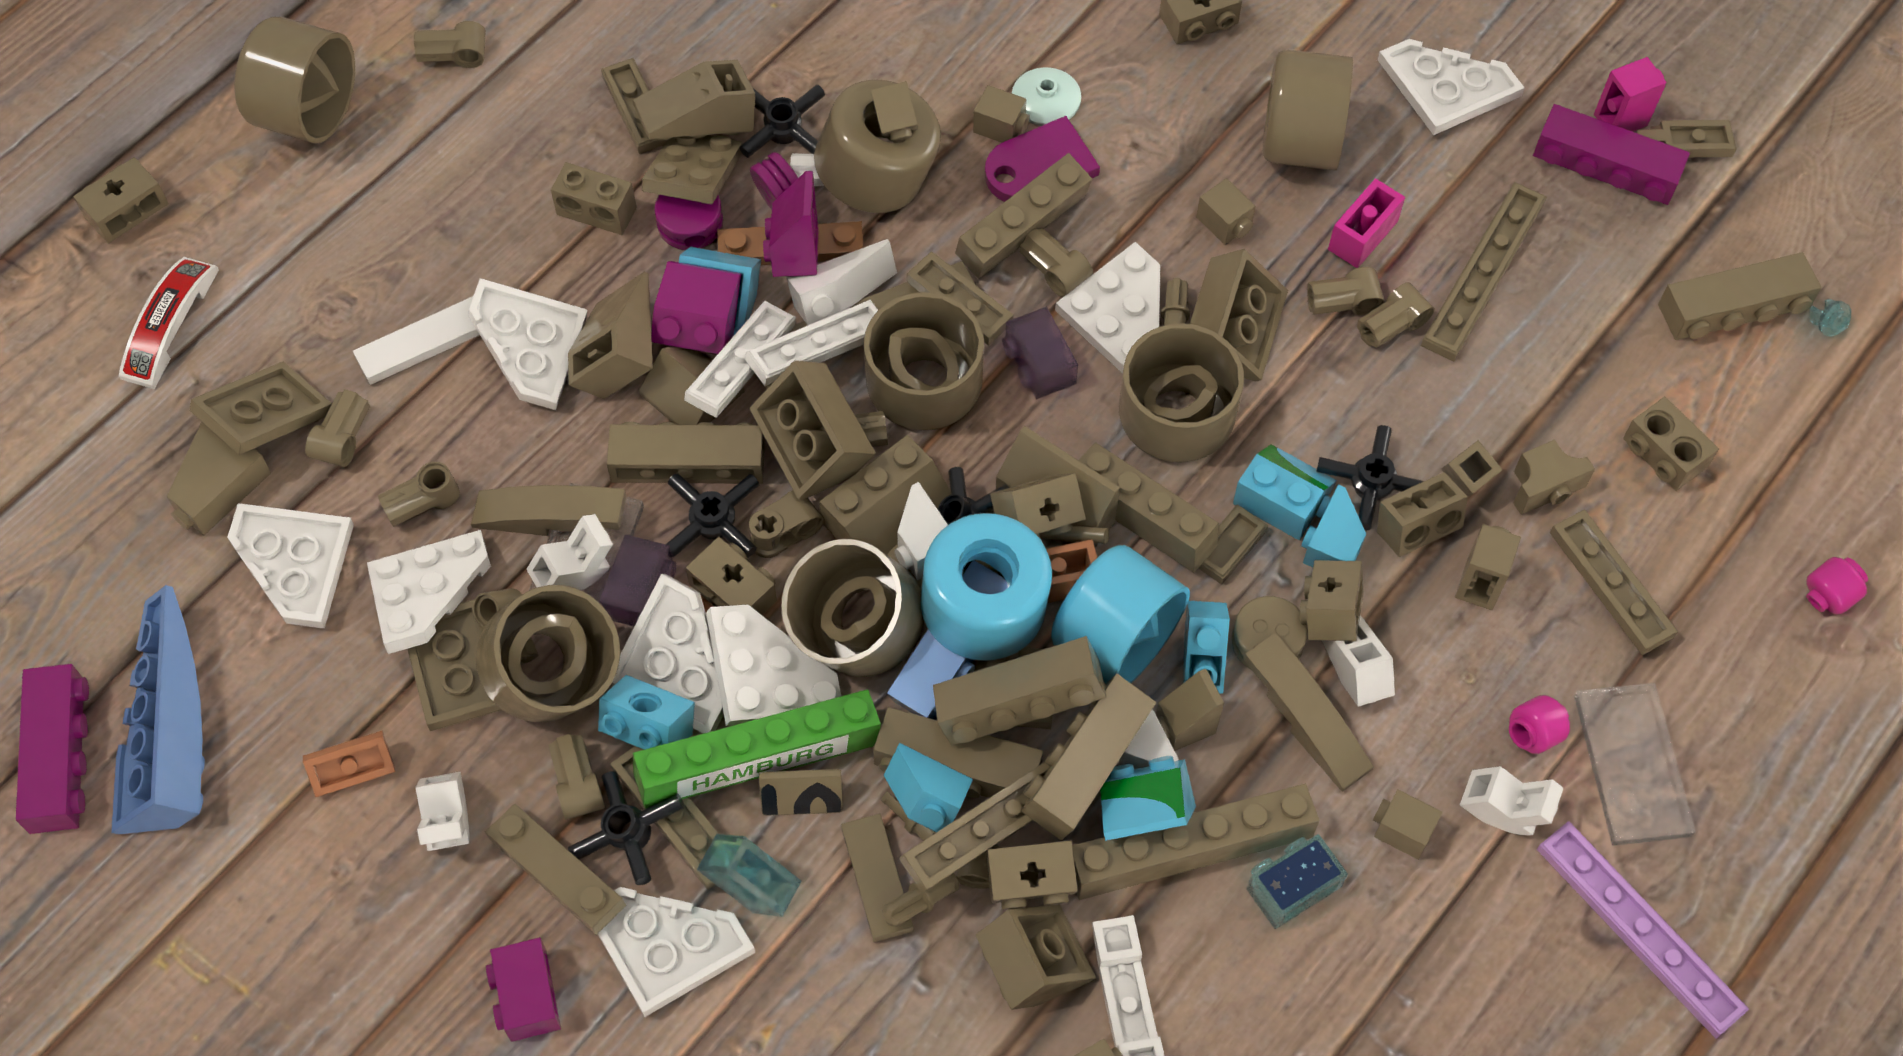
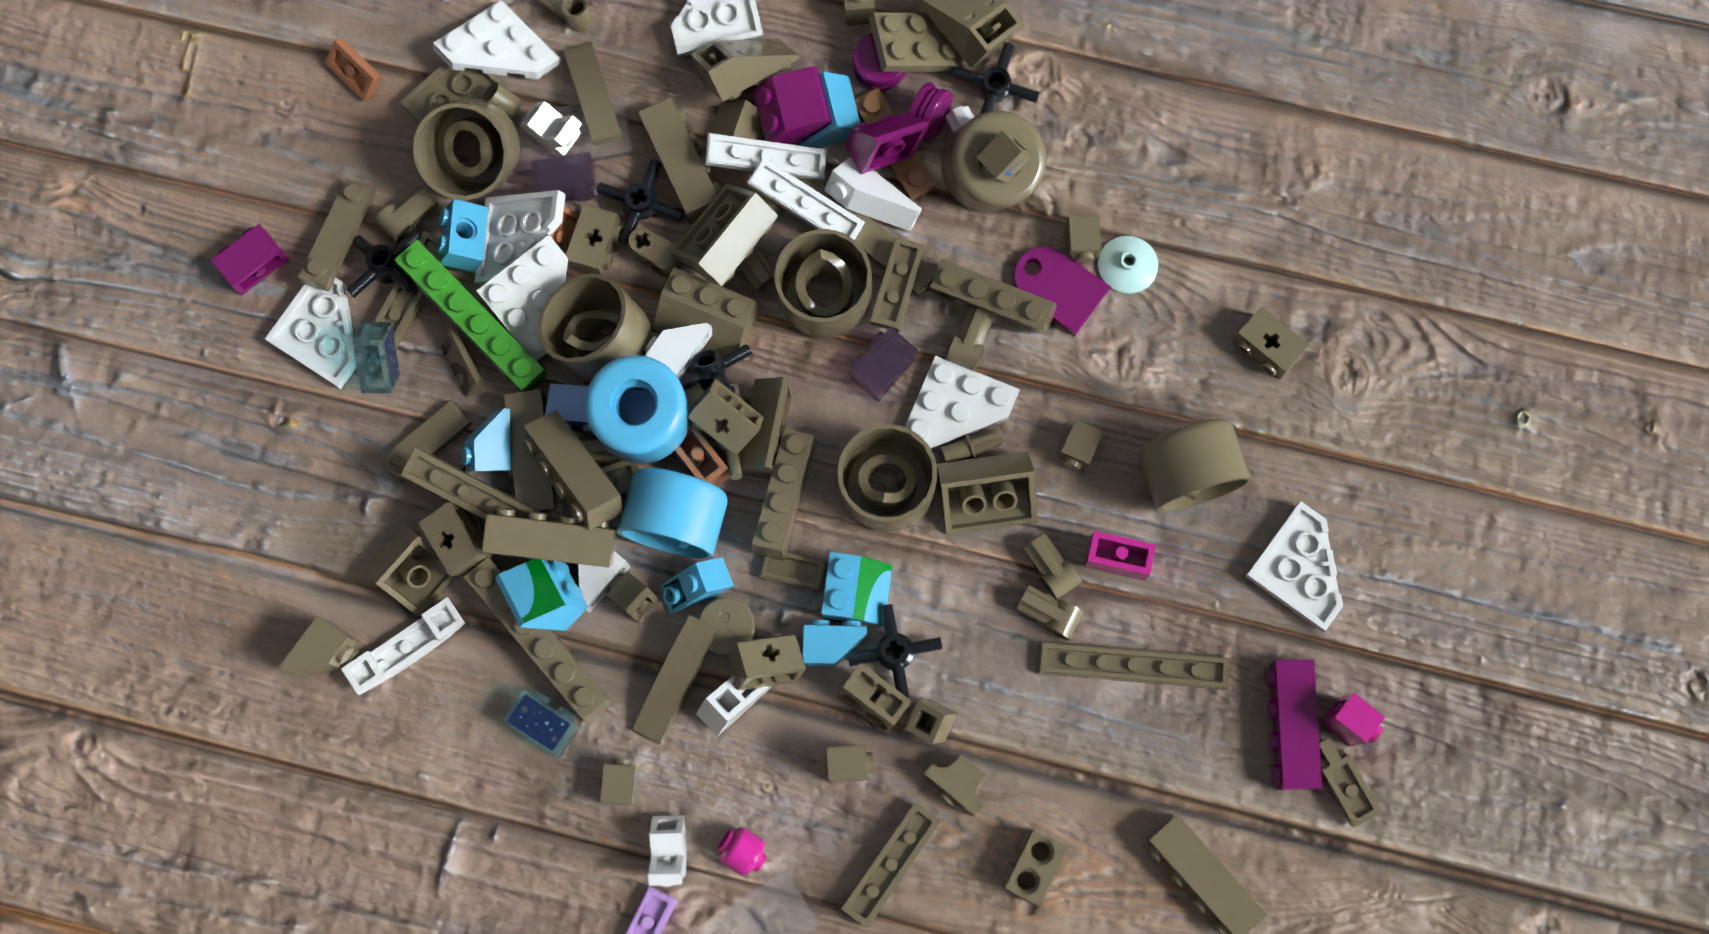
camera: 70 degrees right, 15 degrees up
(442, 811) = (344, 146): white brick -> none

